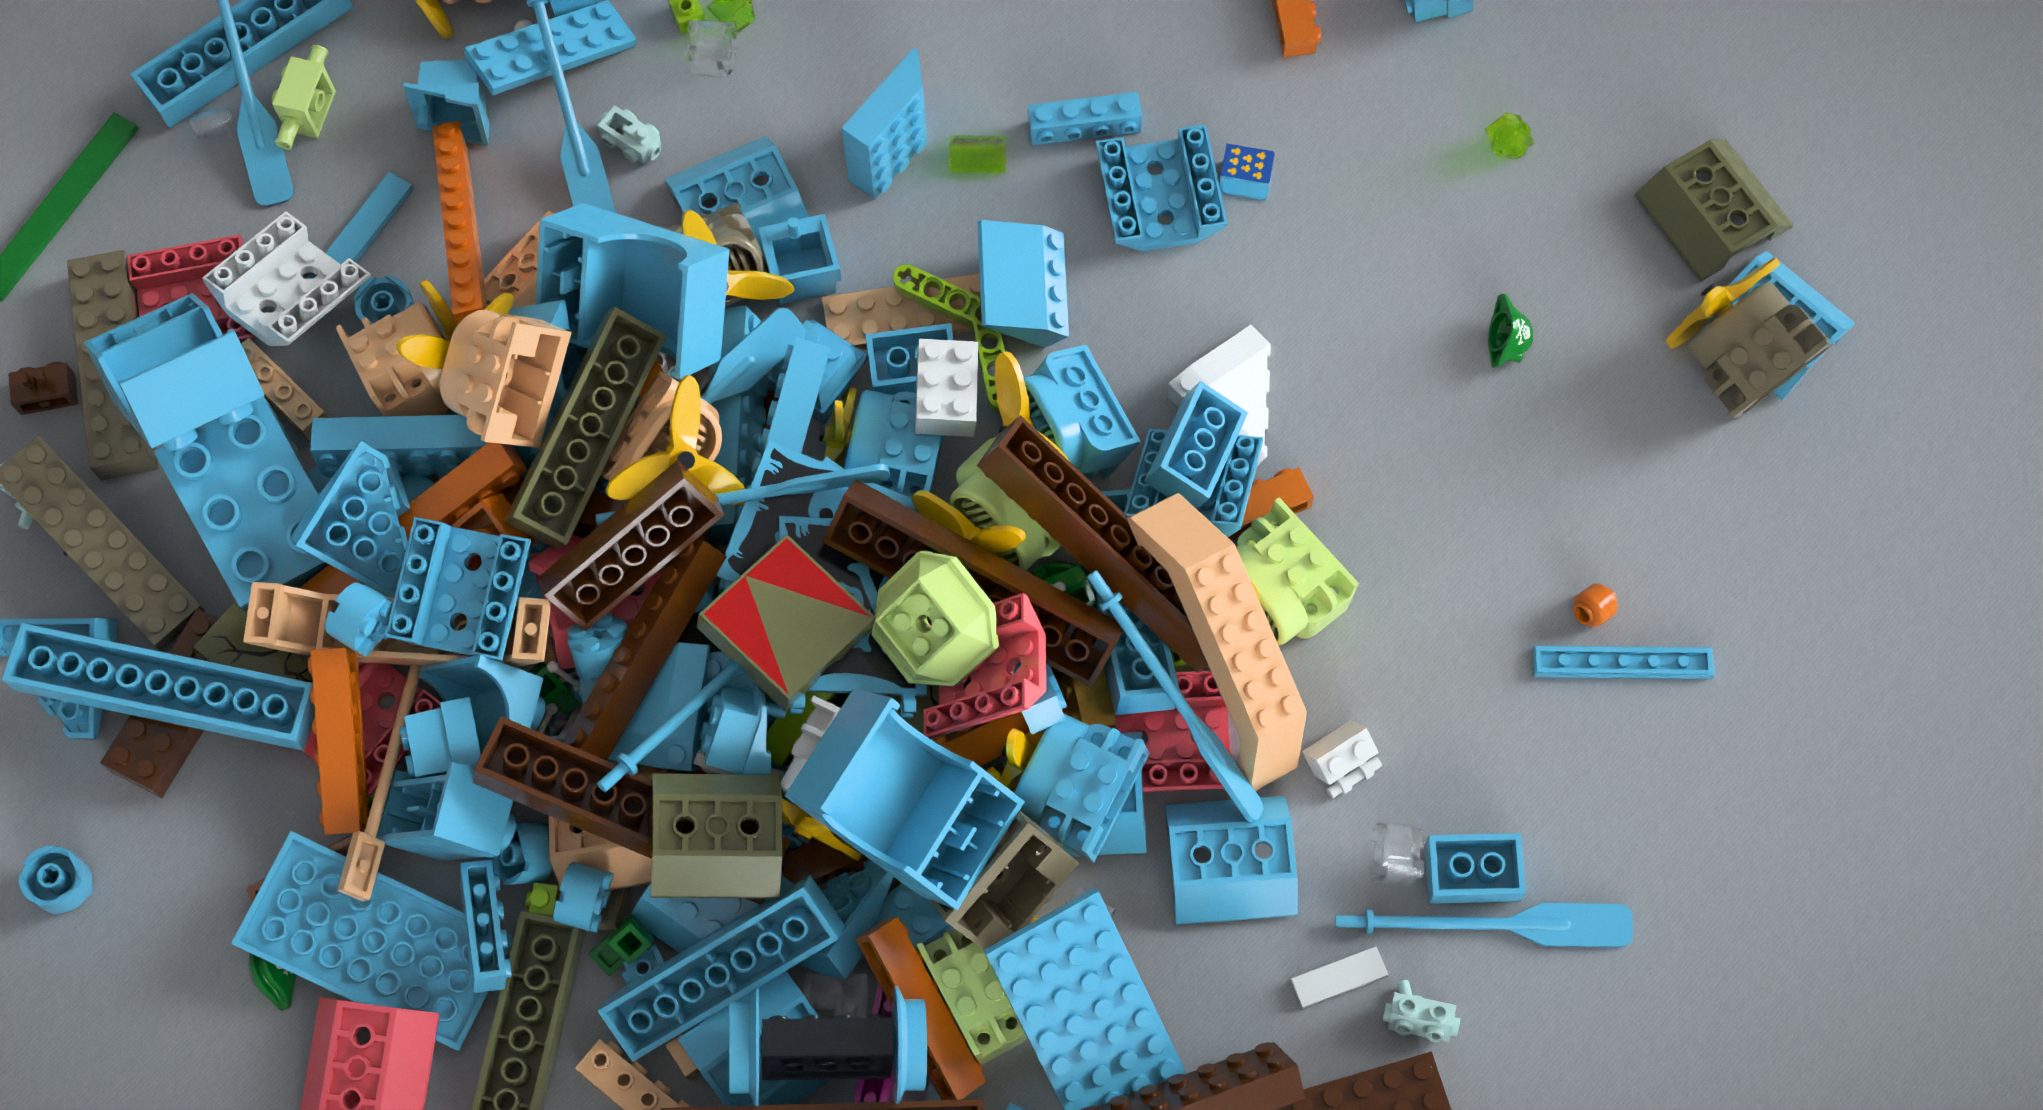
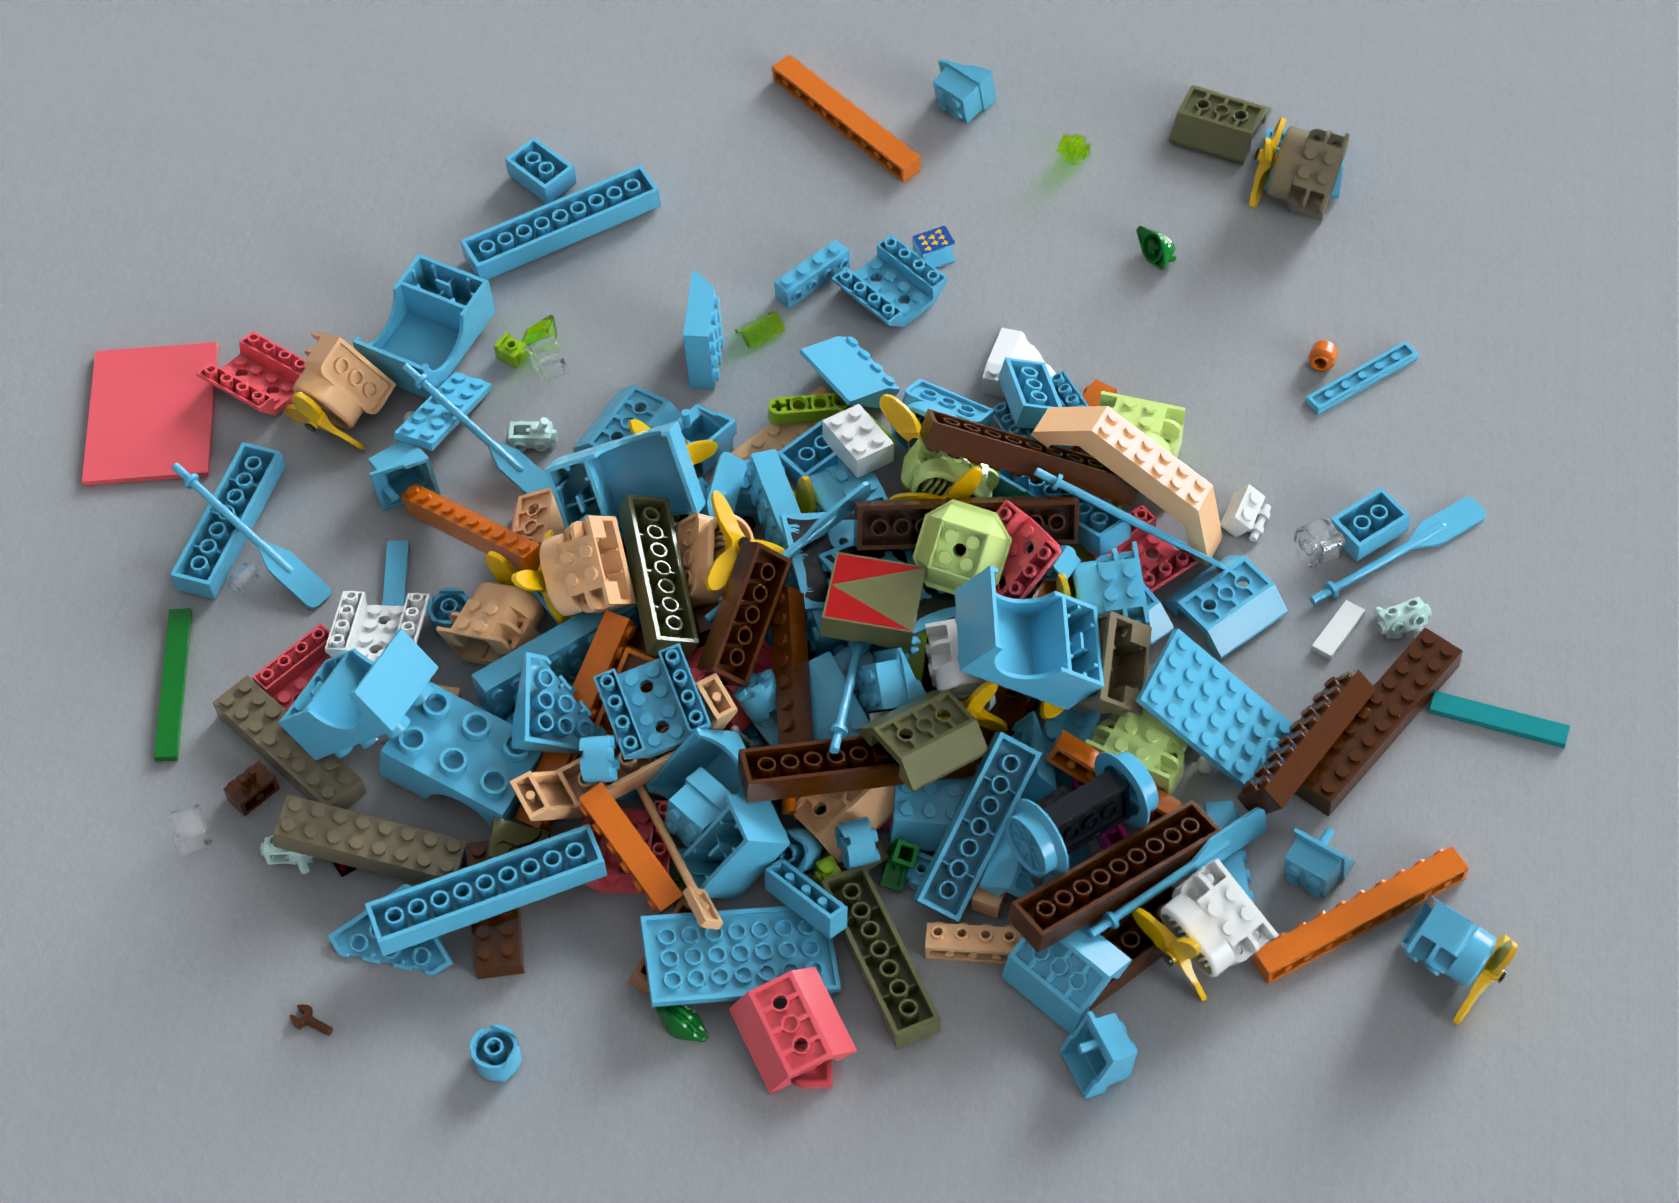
camera: 30 degrees left, 15 degrees down
(303, 97) = (297, 527): yellowish green brick -> none

